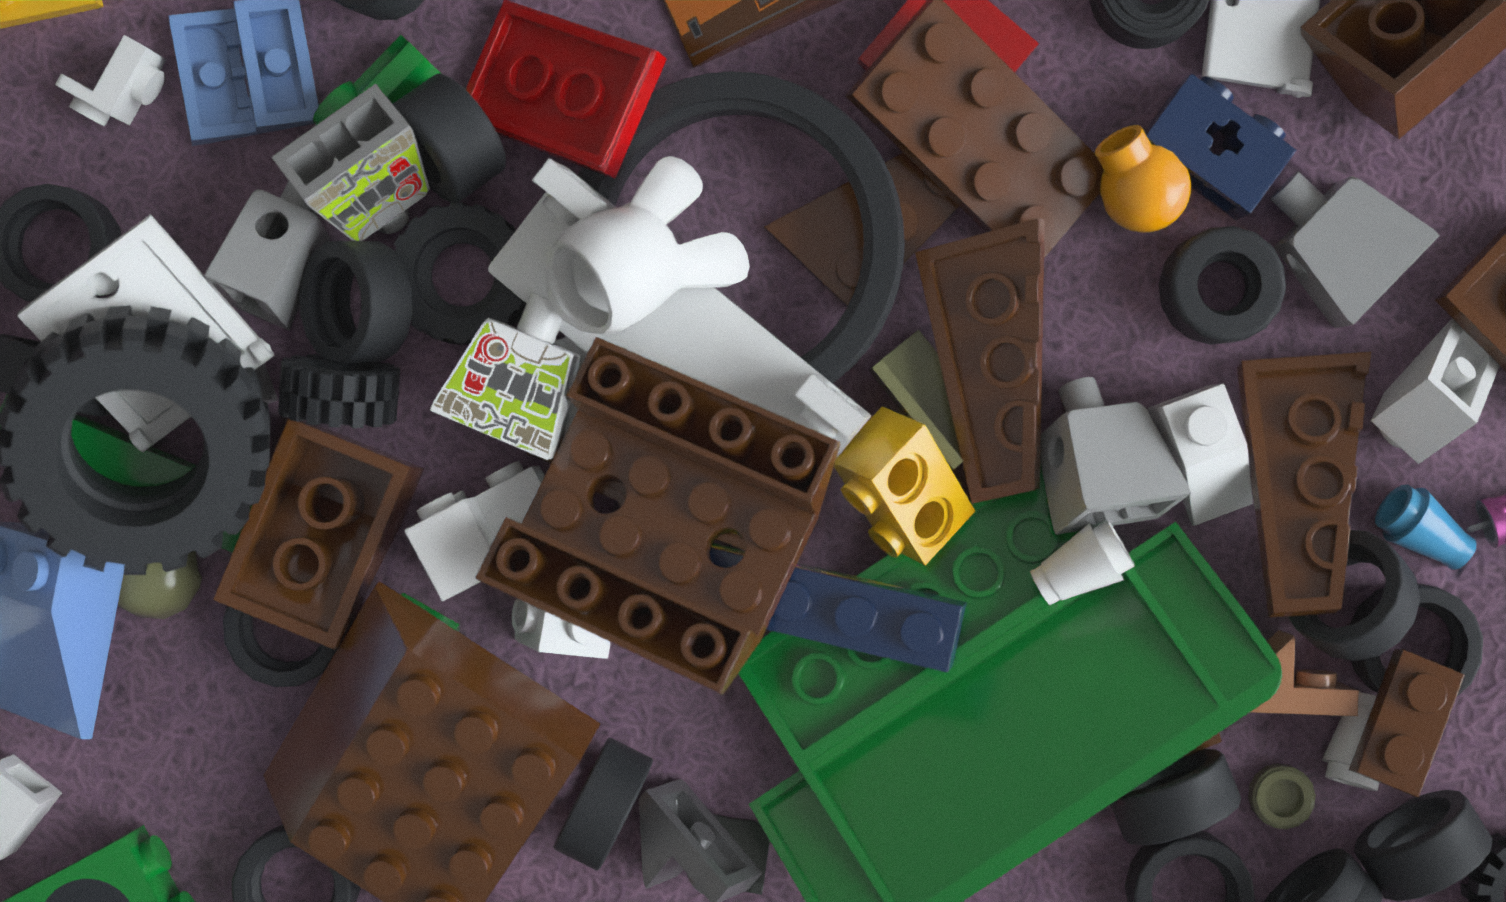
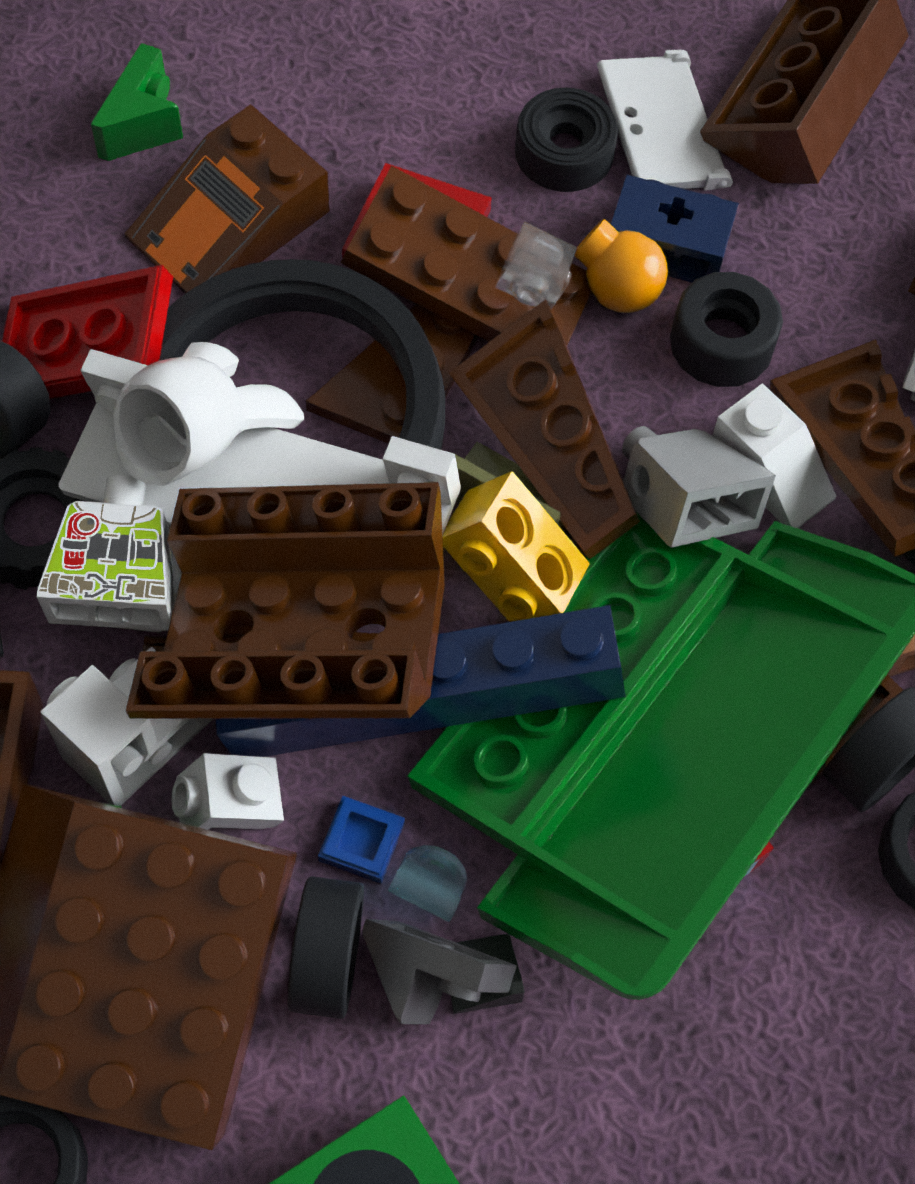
camera: 25 degrees left, 25 degrees down
(670, 701) = (361, 839): none -> blue tile
(716, 764) = (430, 880): none -> clear light blue plate
(1047, 167) = (537, 267): none -> clear bracket
(1083, 564) = (707, 559): white cone -> none
(1347, 244) = (814, 267): light grey torso -> none

